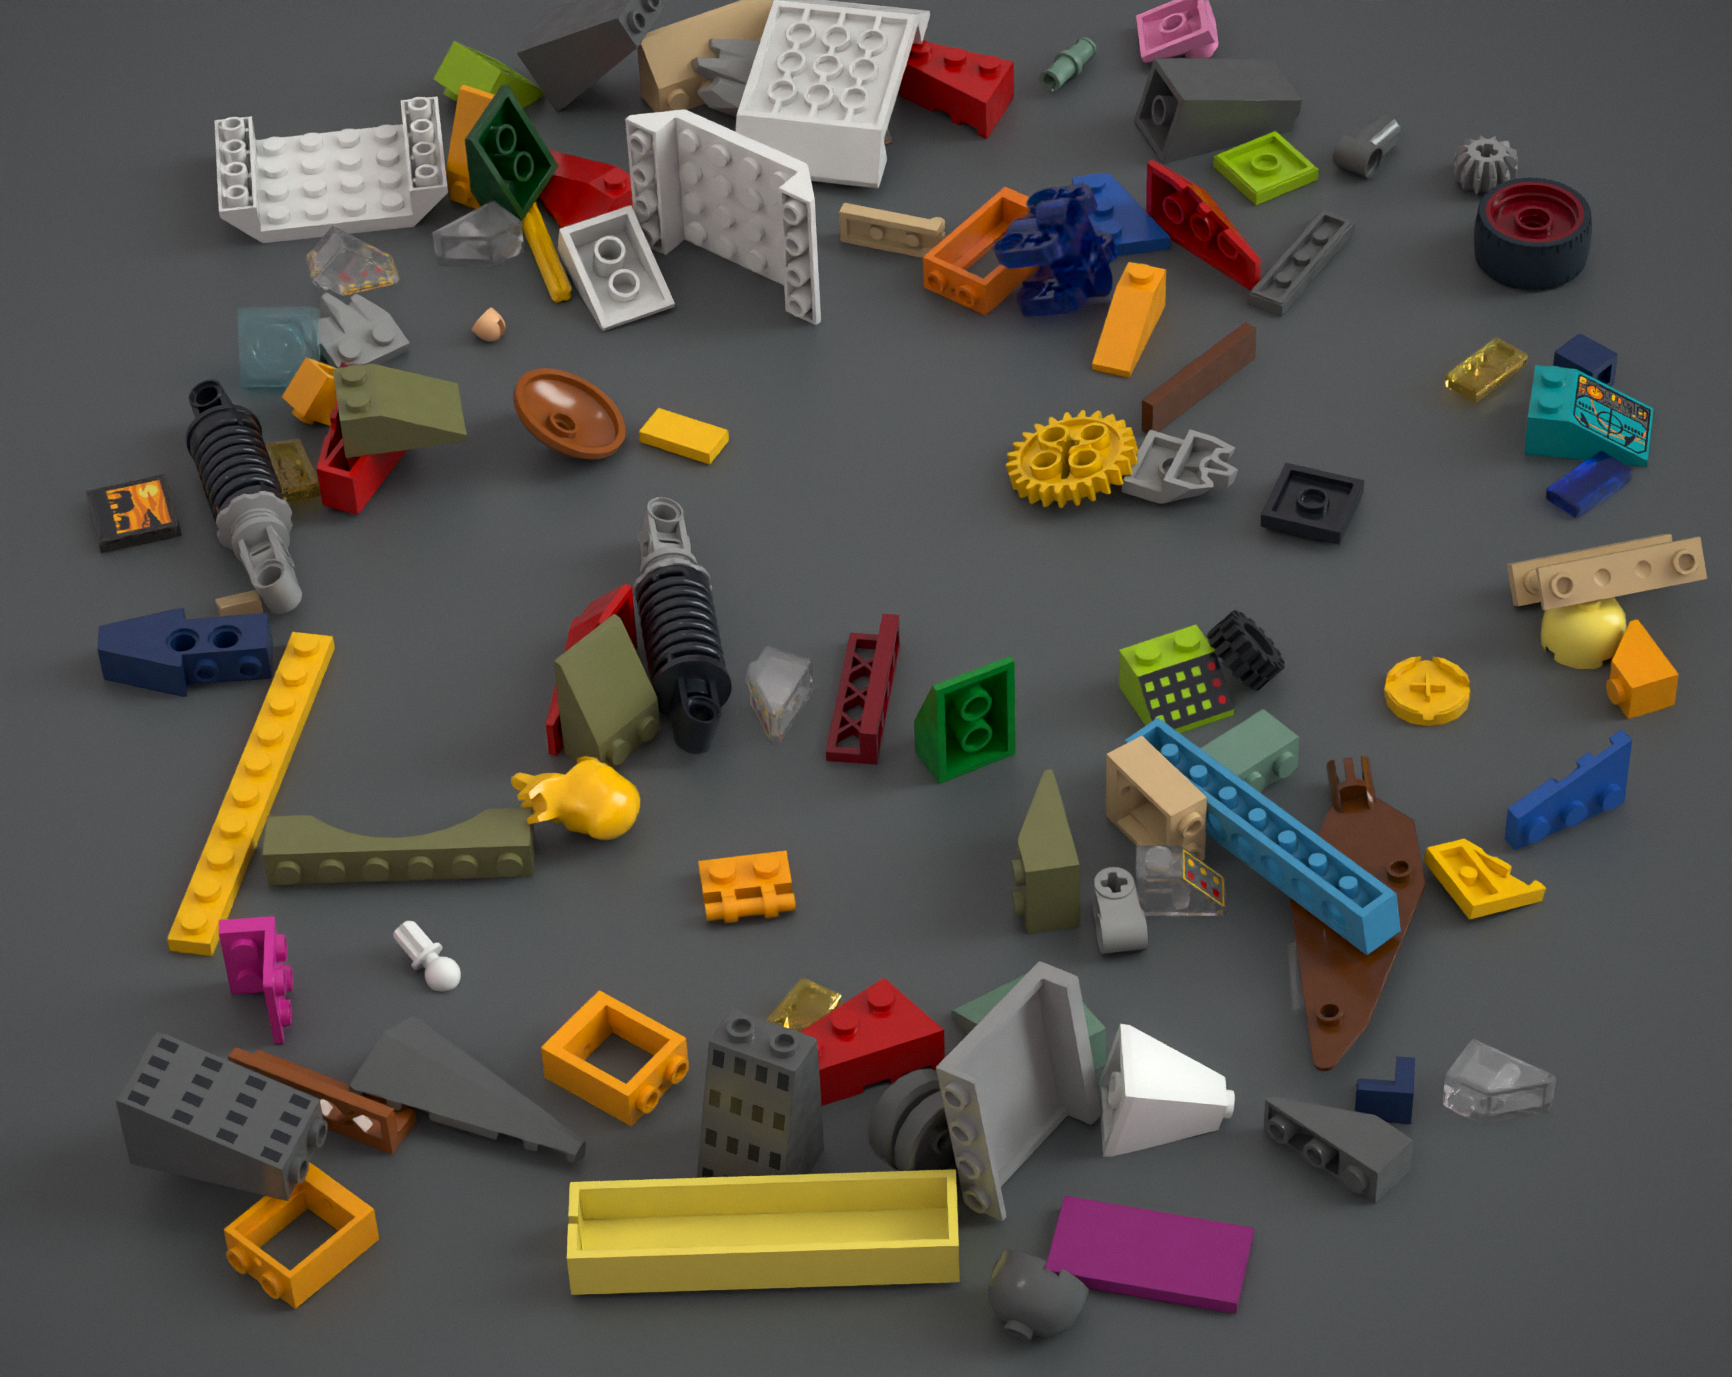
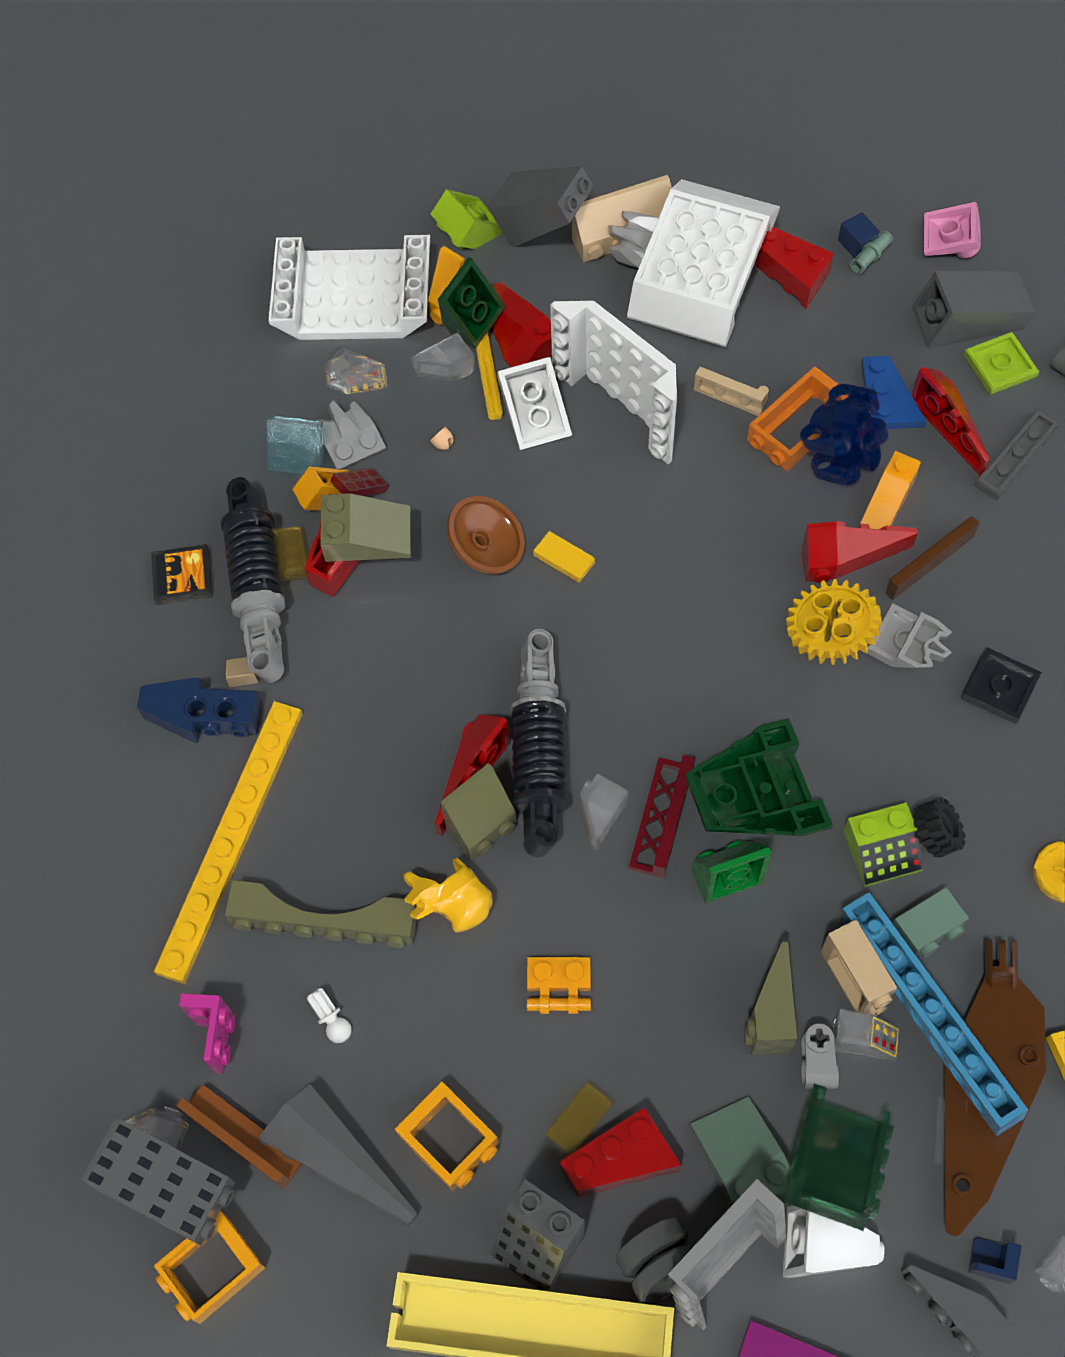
camera: 10 degrees right, 20 degrees up
(986, 621) = (757, 787): none -> dark green wedge
(1041, 42) = (856, 233): none -> dark blue panel
(1083, 374) = (837, 550): none -> red wedge
(1151, 996) = (838, 1162): none -> clear green panel

